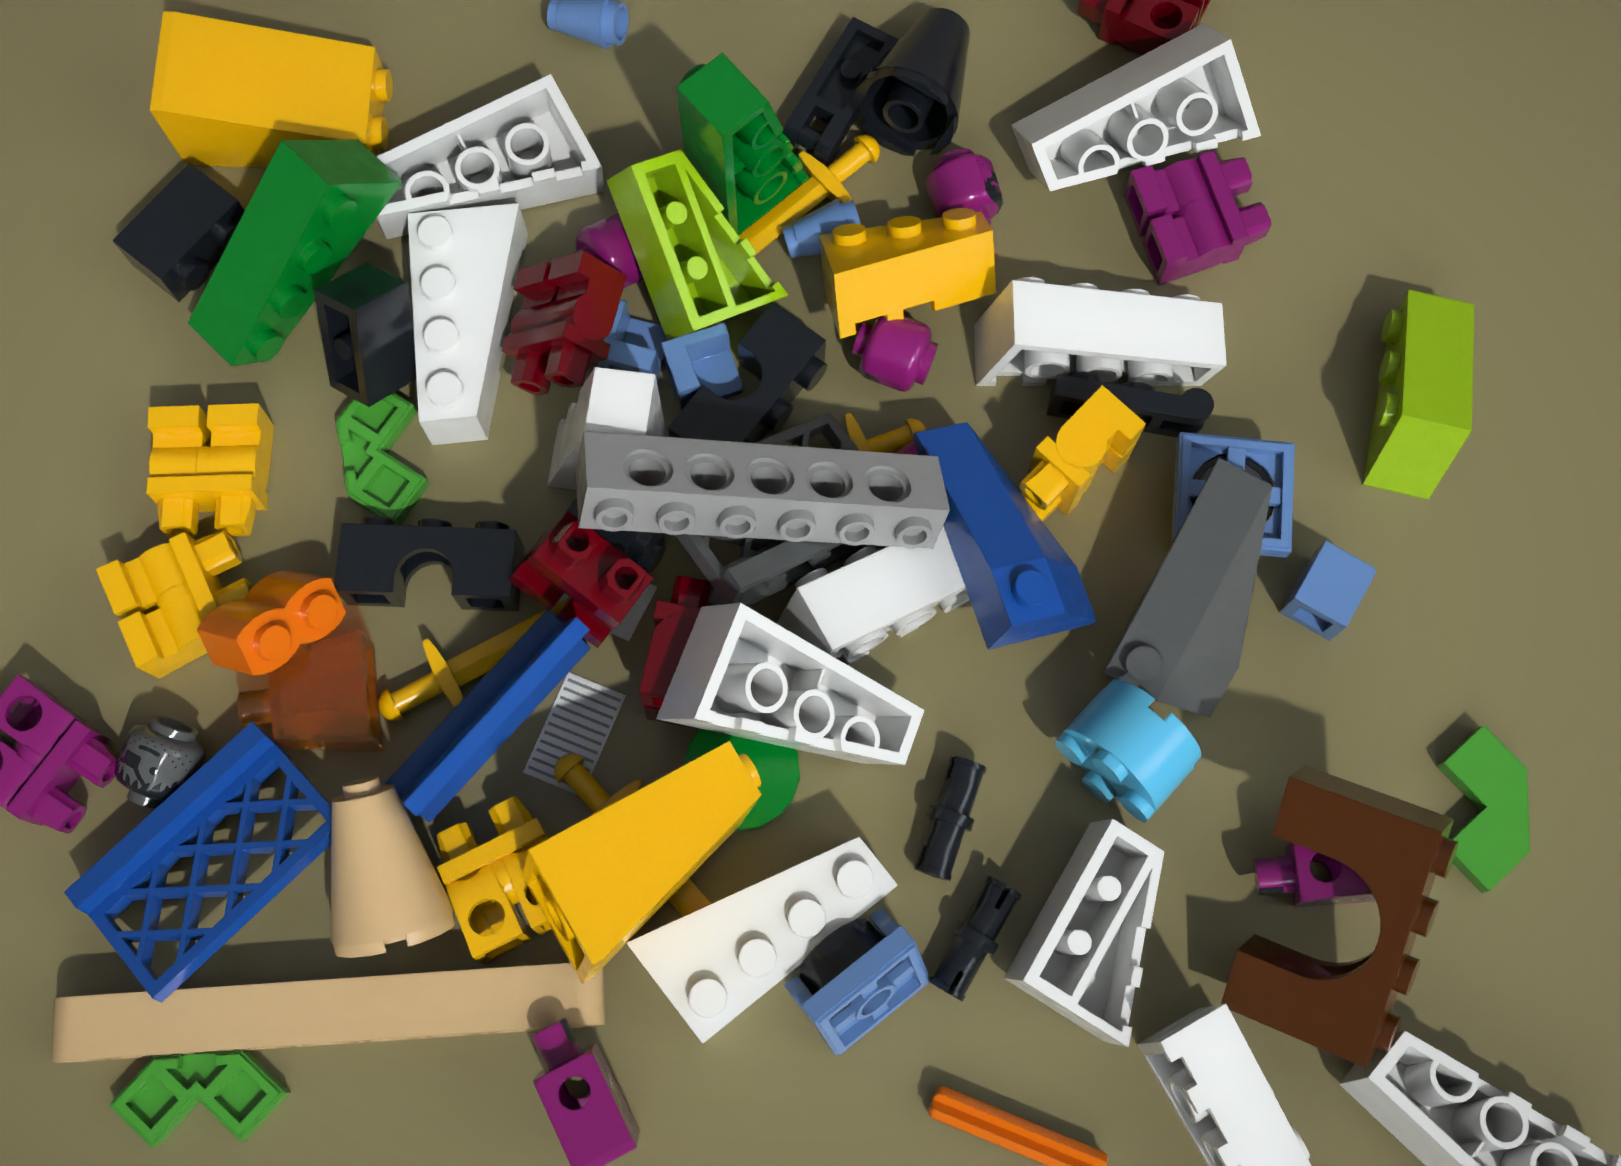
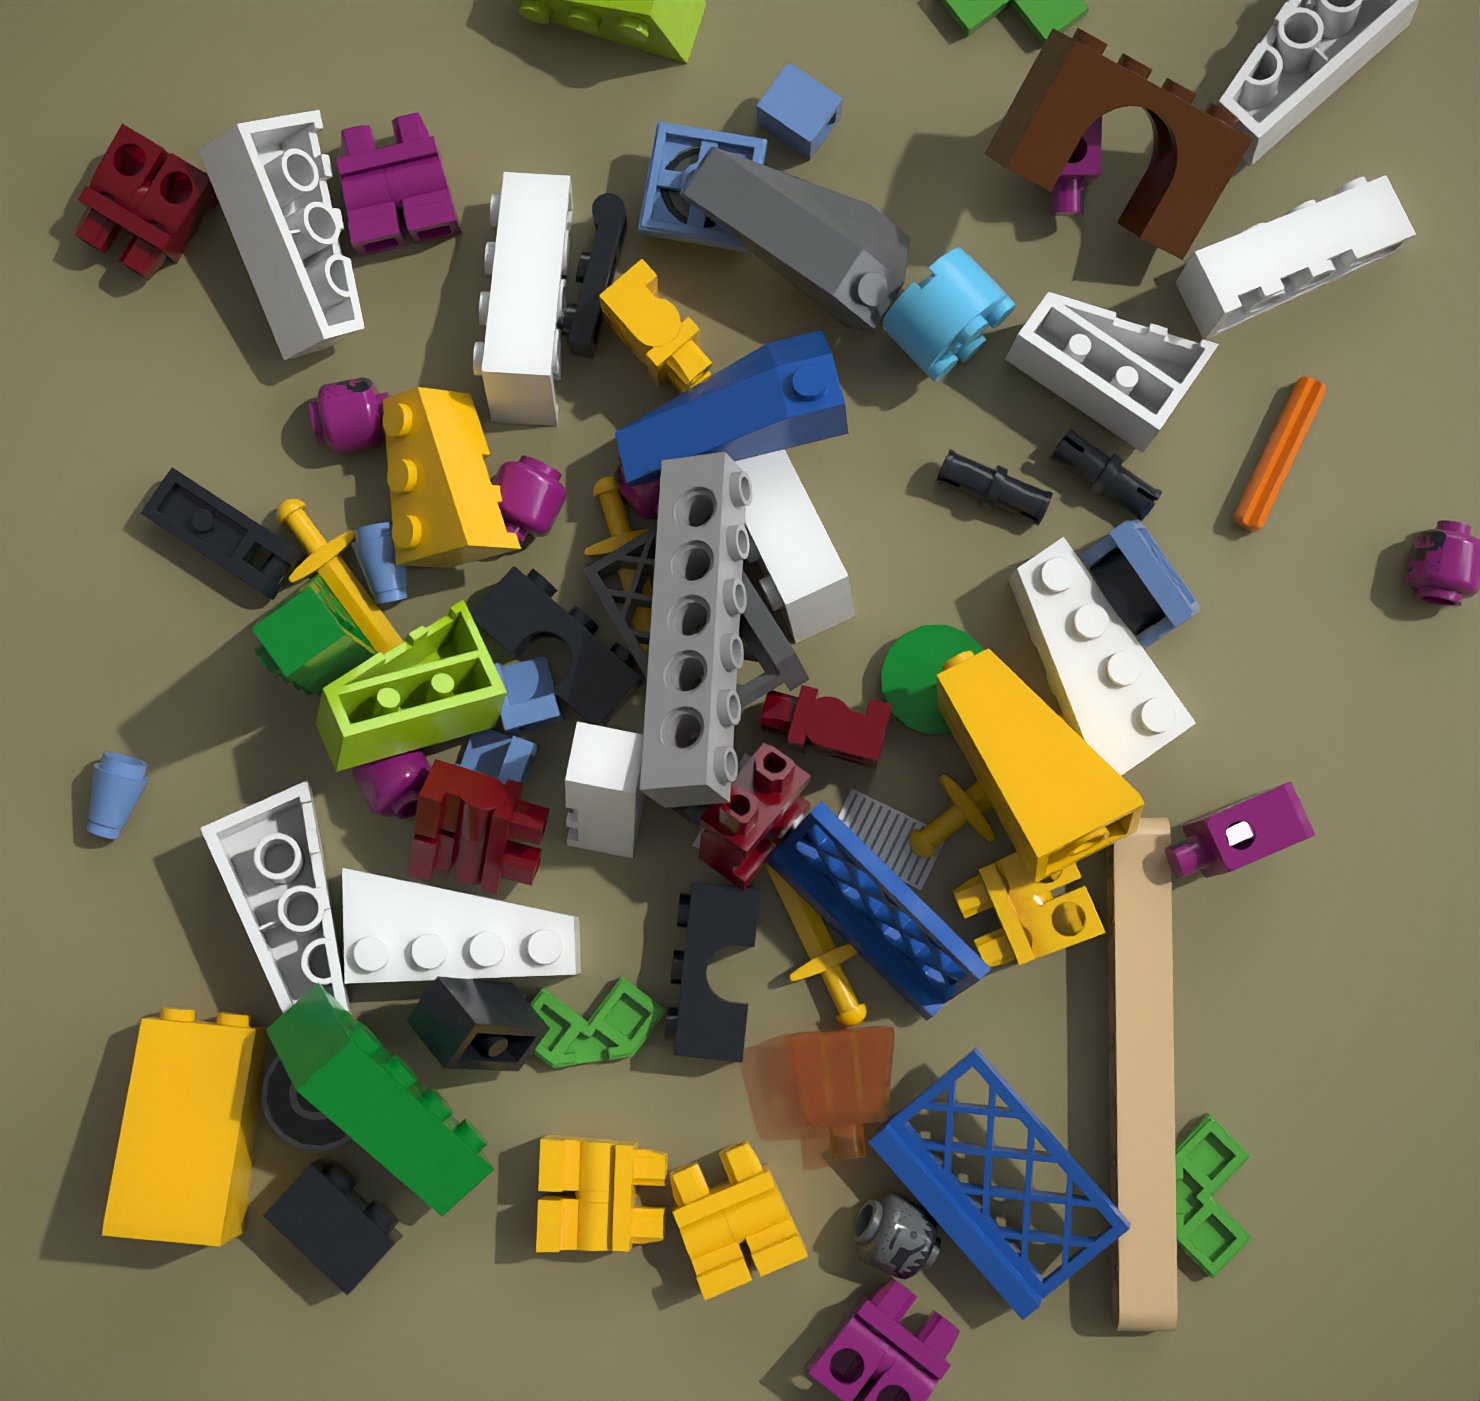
camera: 80 degrees left, 10 degrees up
(271, 622) = (772, 1122): orange brick -> none
(380, 874) = (1031, 1013): tan cone -> none
(776, 688) = (884, 636): white wedge -> none
(917, 86) = (227, 448): black cone -> none

